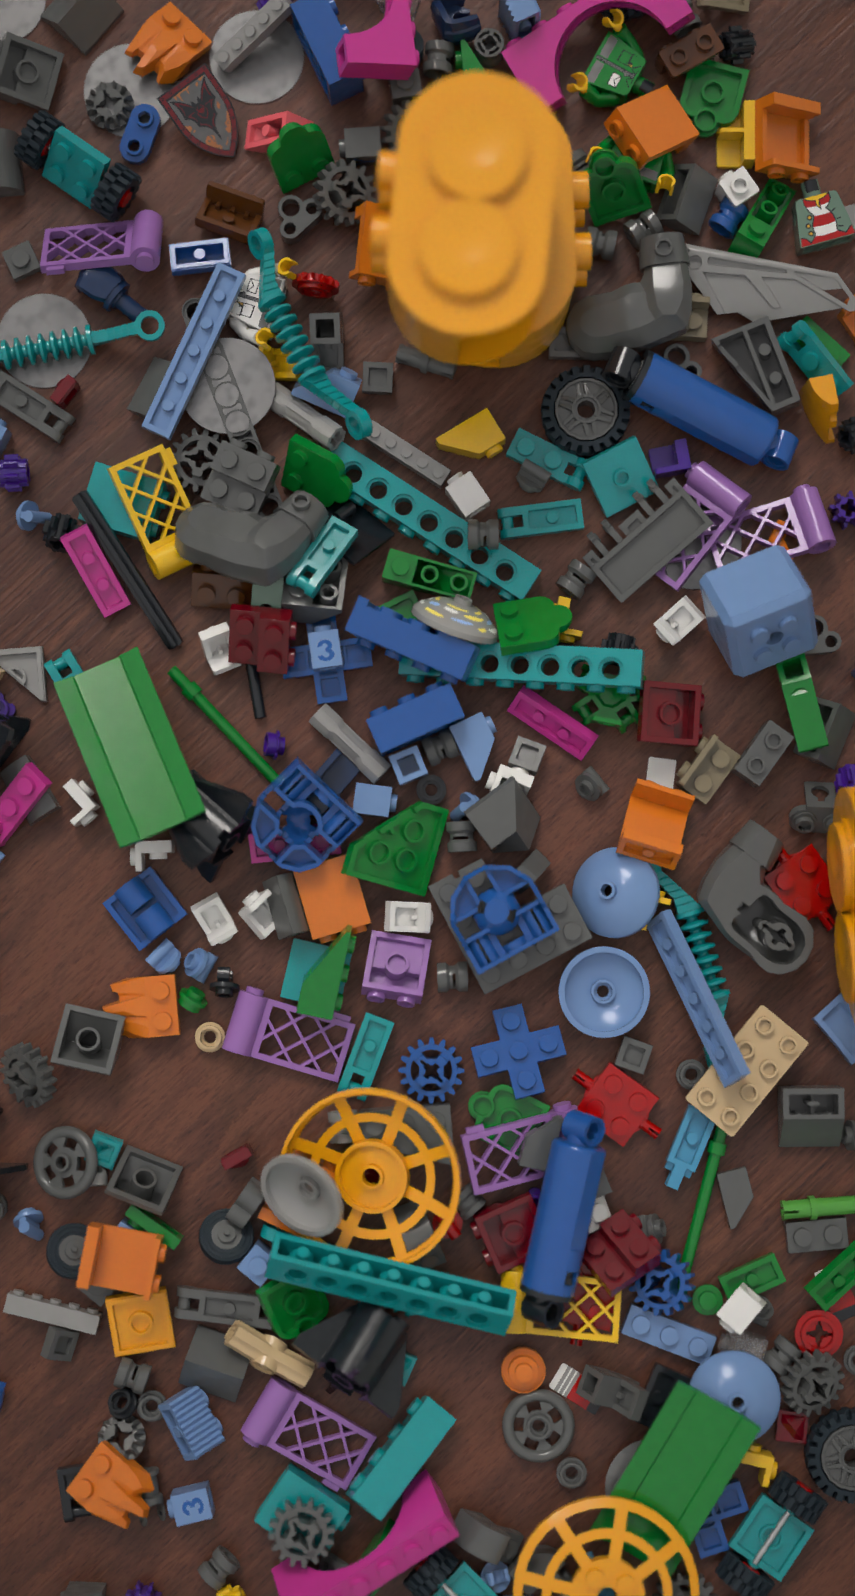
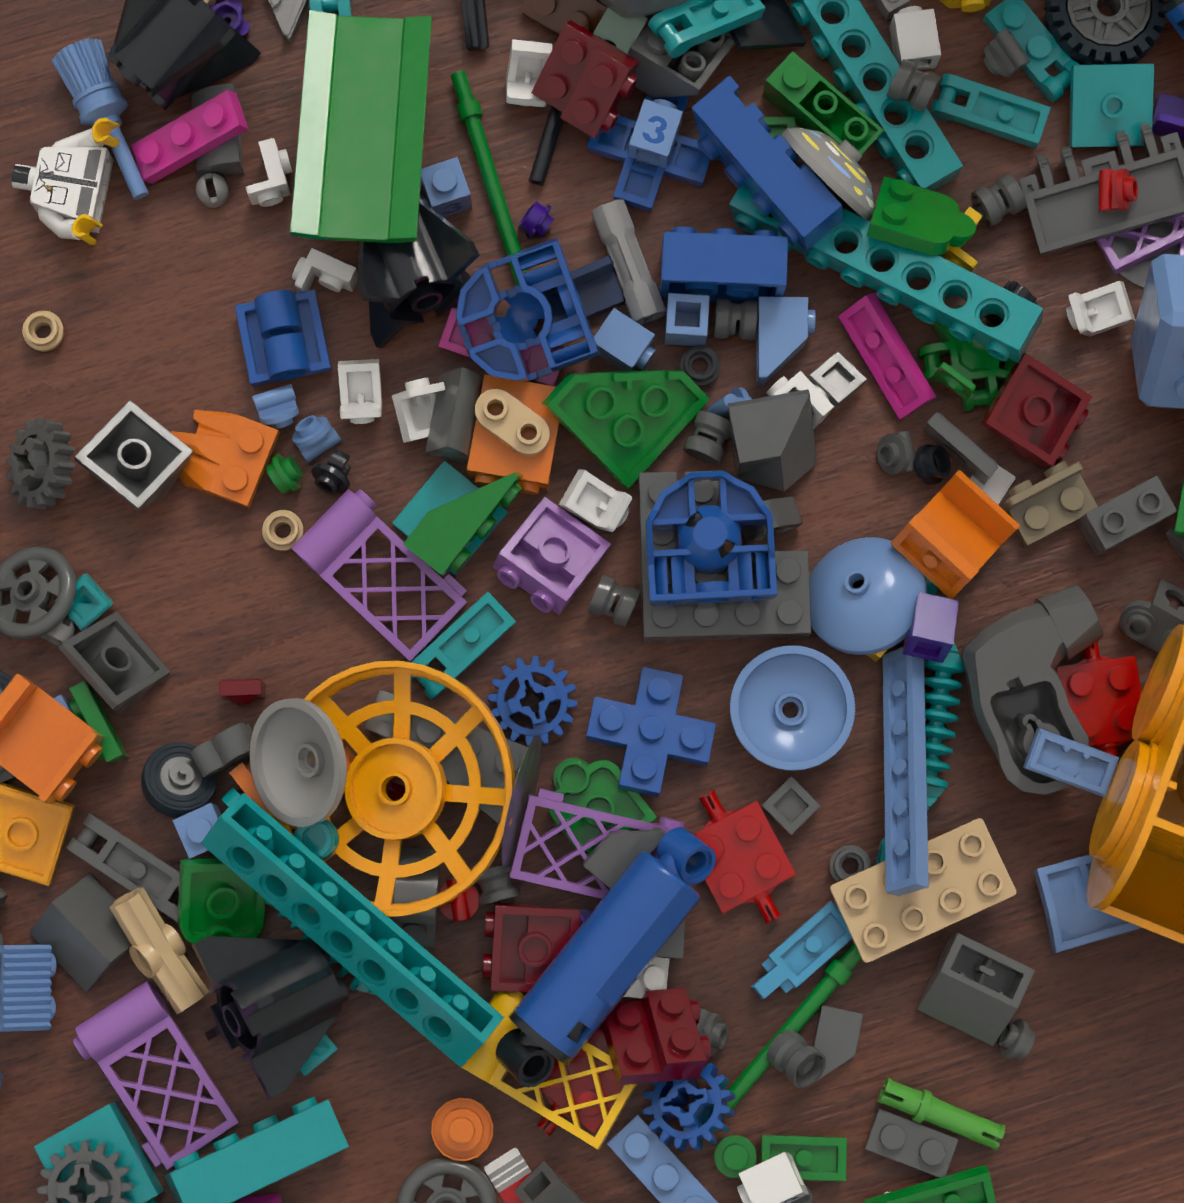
camera: 25 degrees right, 5 degrees down
(51, 826) = (221, 188): none -> light grey hinge
(203, 754) = (446, 187): none -> medium blue brick
(327, 894) = (511, 422): none -> tan plate
(341, 1236) = (319, 838): none -> teal tile
(455, 1131) = (524, 785): none -> flat silver sticker
(617, 781) = (931, 463): none -> black plate
(631, 761) = (960, 448): none -> dark grey tile
(652, 538) = (1116, 190): none -> red plate
(670, 896) = (932, 628): none -> panel
(713, 1218) = (800, 1062): none -> dark grey wheel
(803, 942) = (1071, 762): none -> medium blue plate

